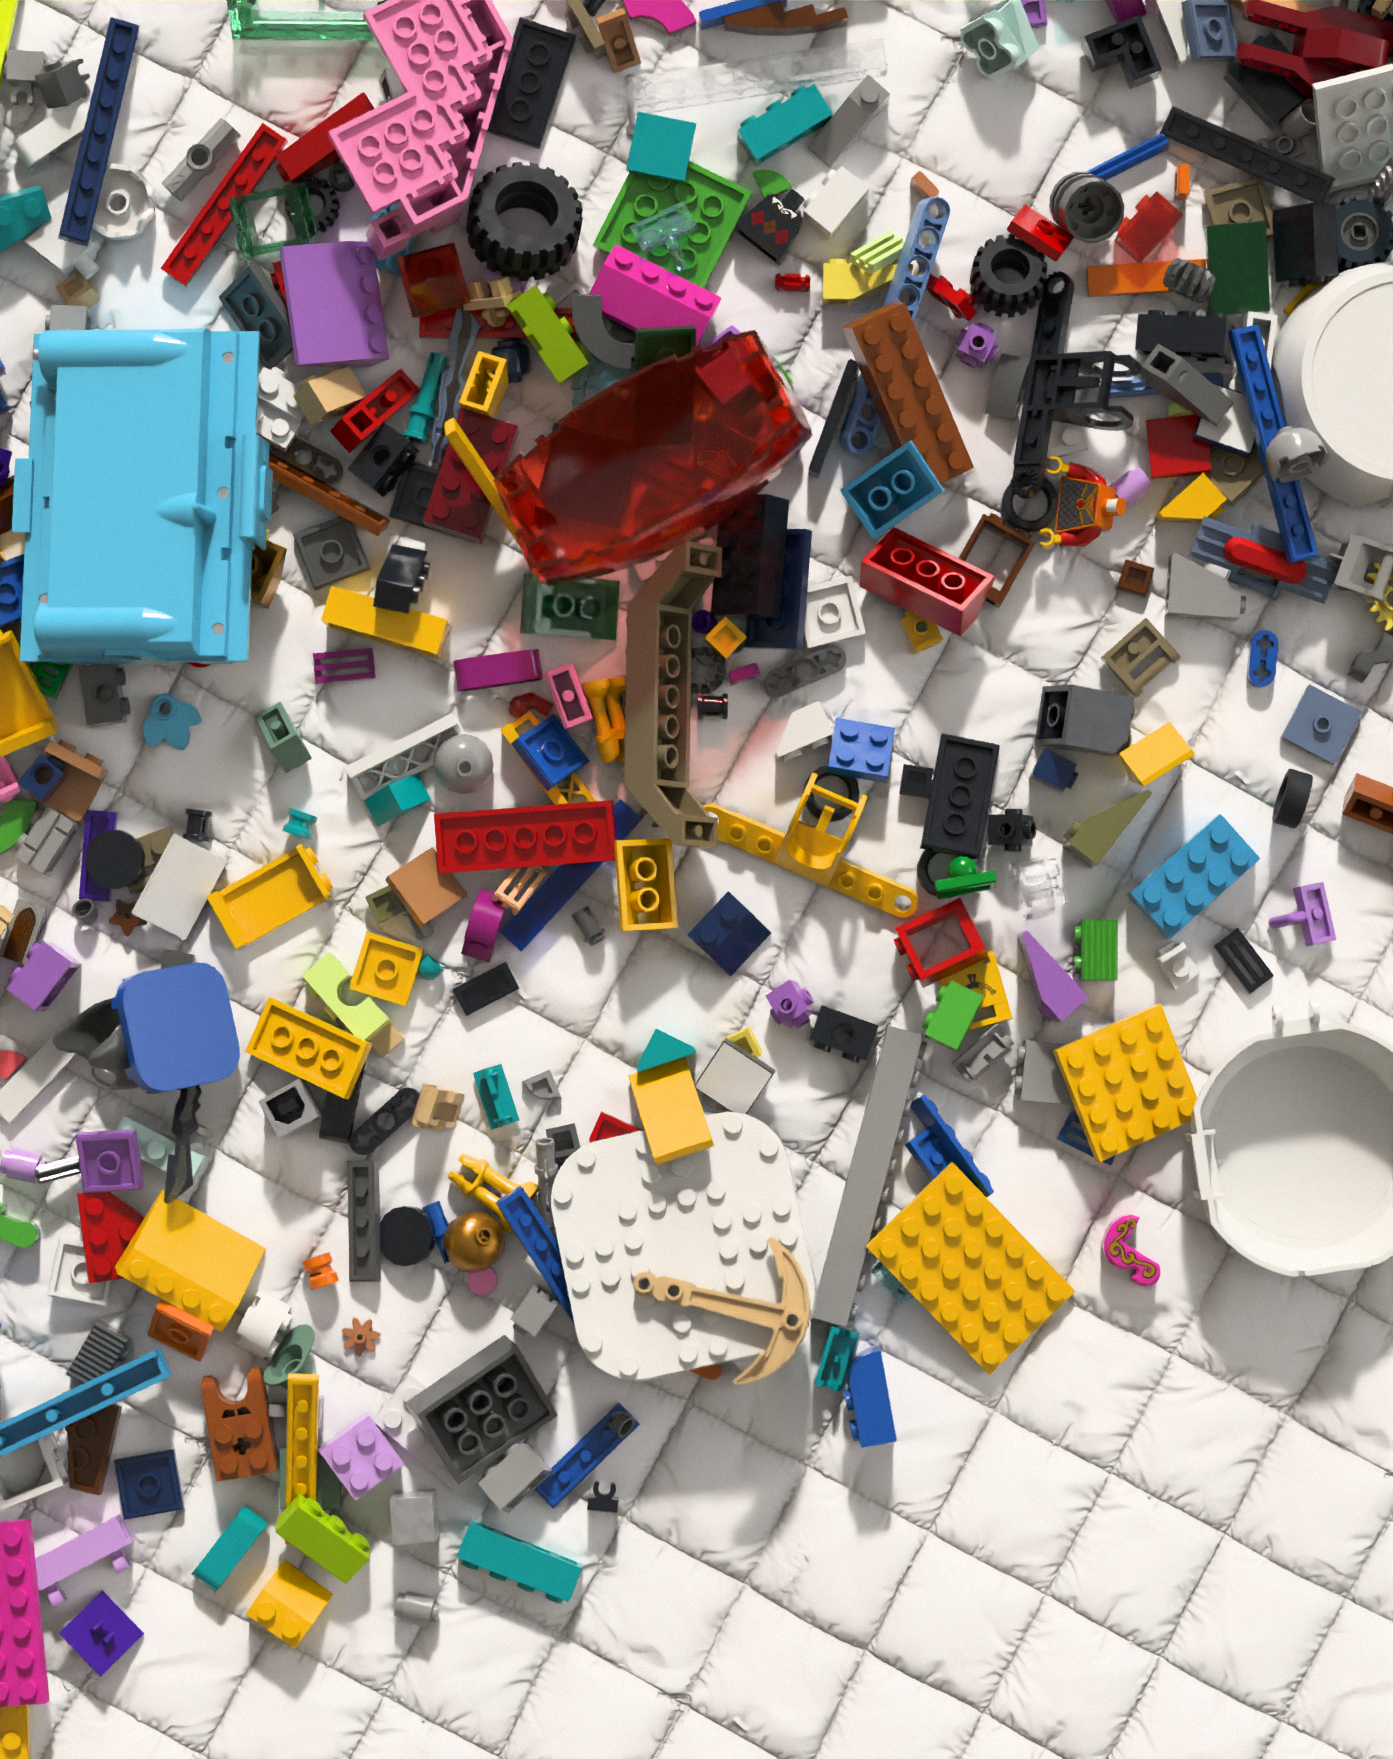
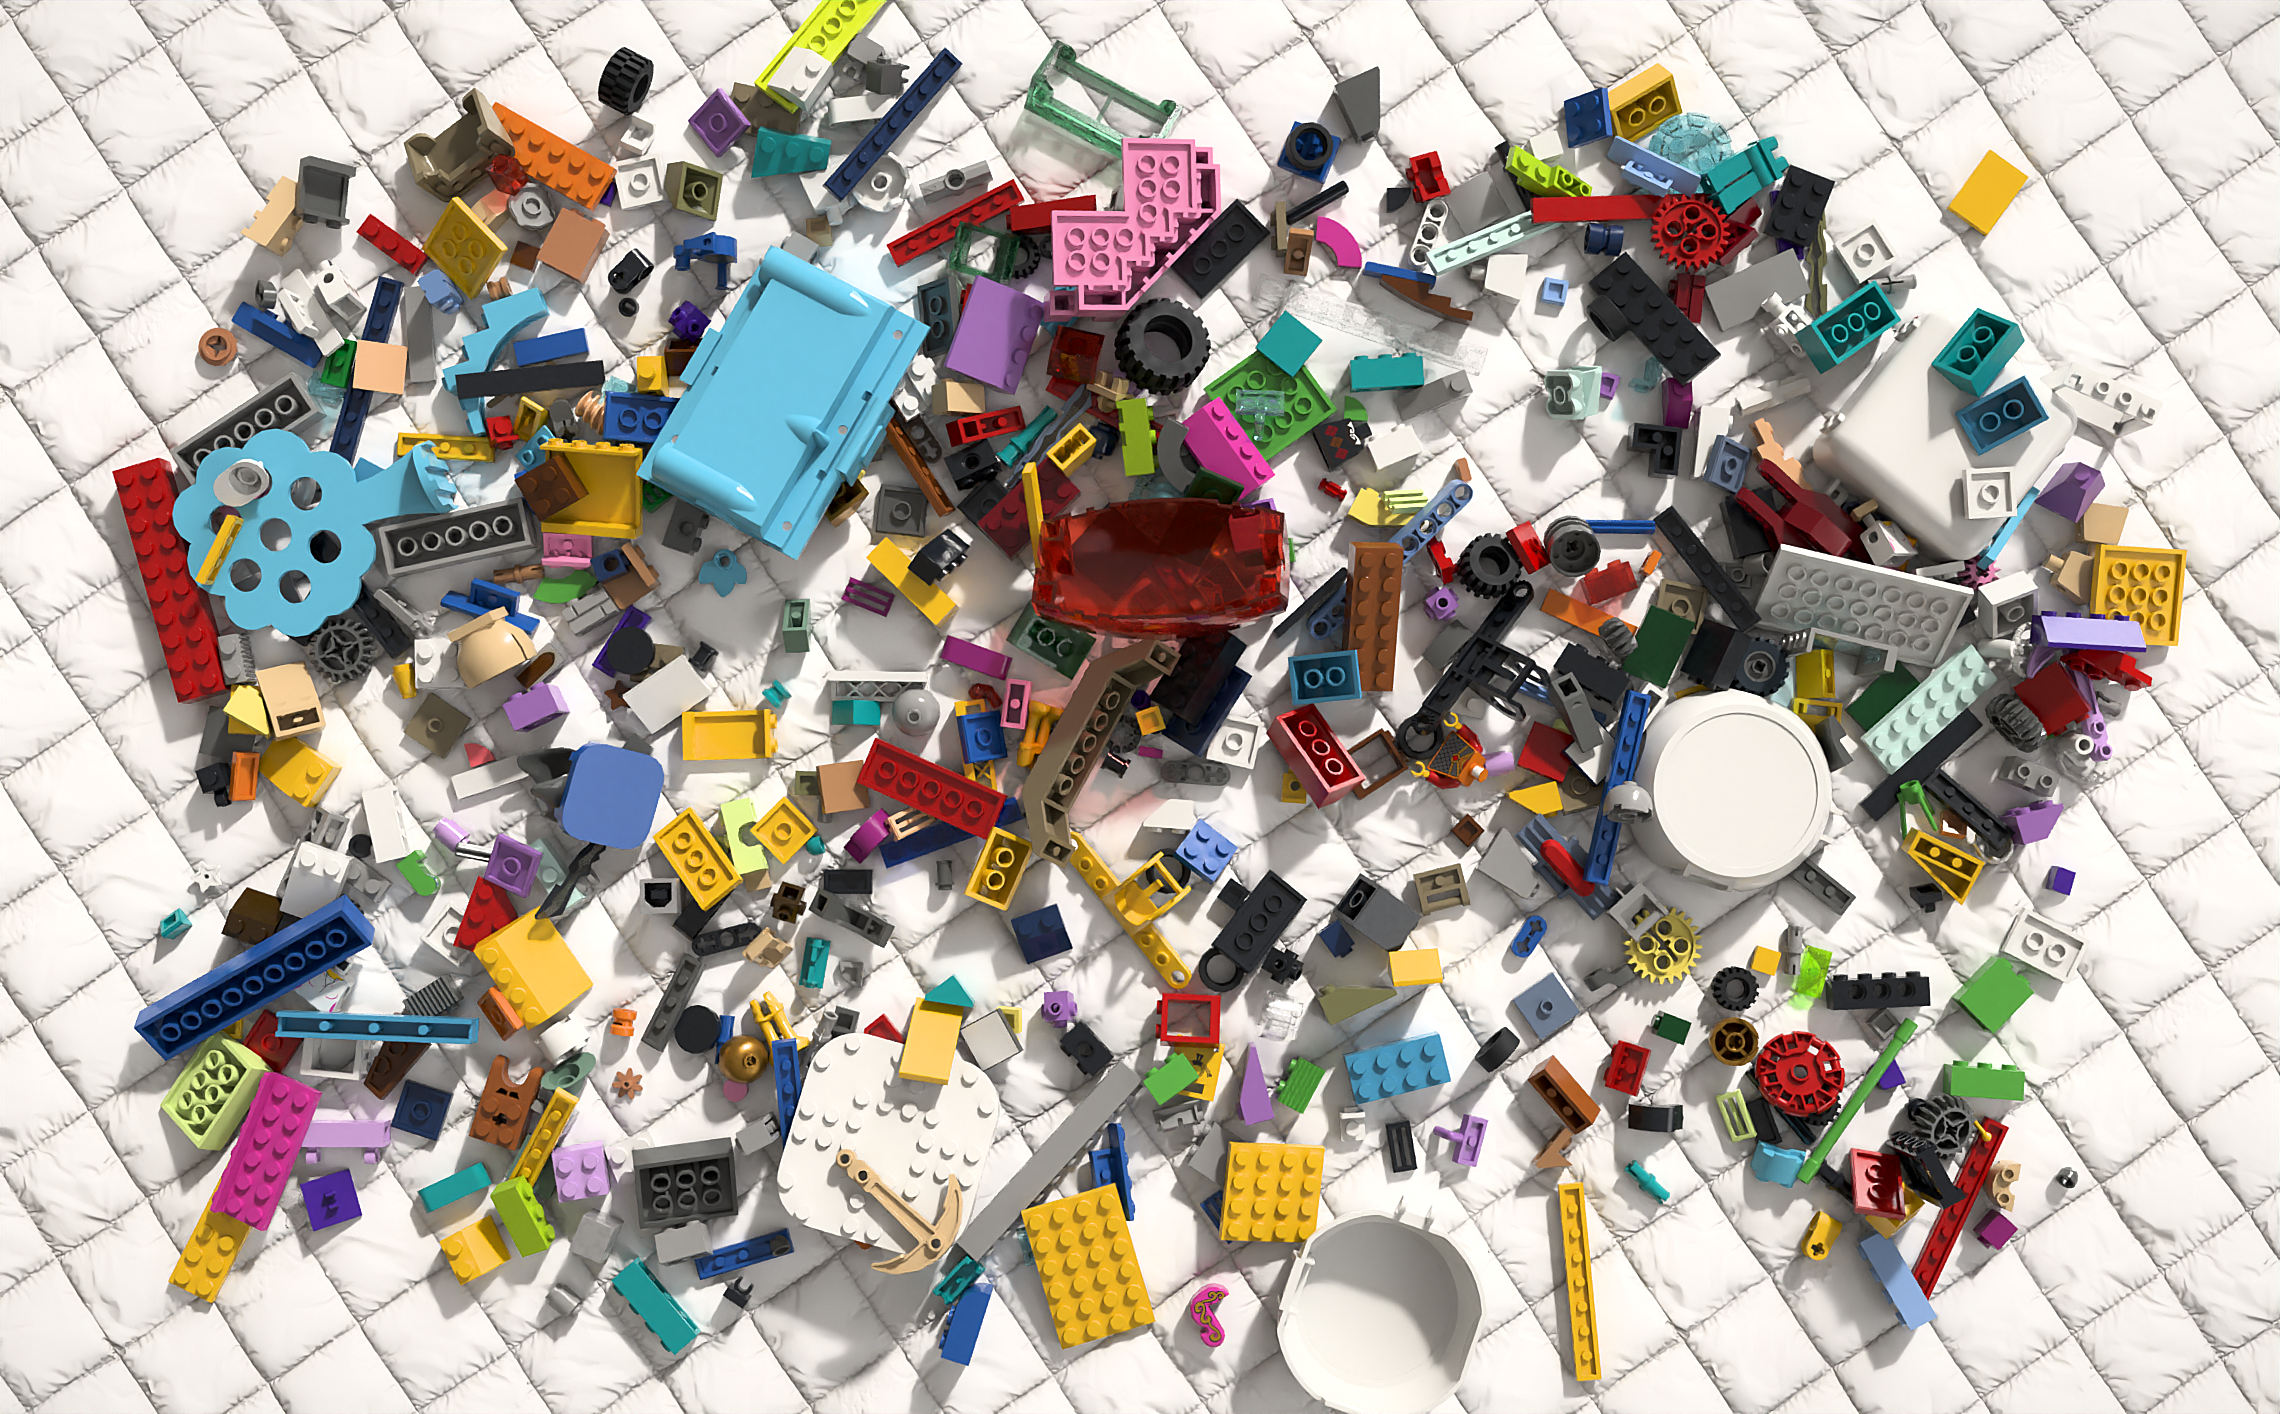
camera: 25 degrees right, 0 degrees up
(85, 911) = (593, 675): dark grey hinge -> none
(433, 1044) = (788, 902): none -> dark brown brick
(511, 1023) = (852, 916): none -> dark grey arch
(964, 879) = (1230, 984): green tile -> none

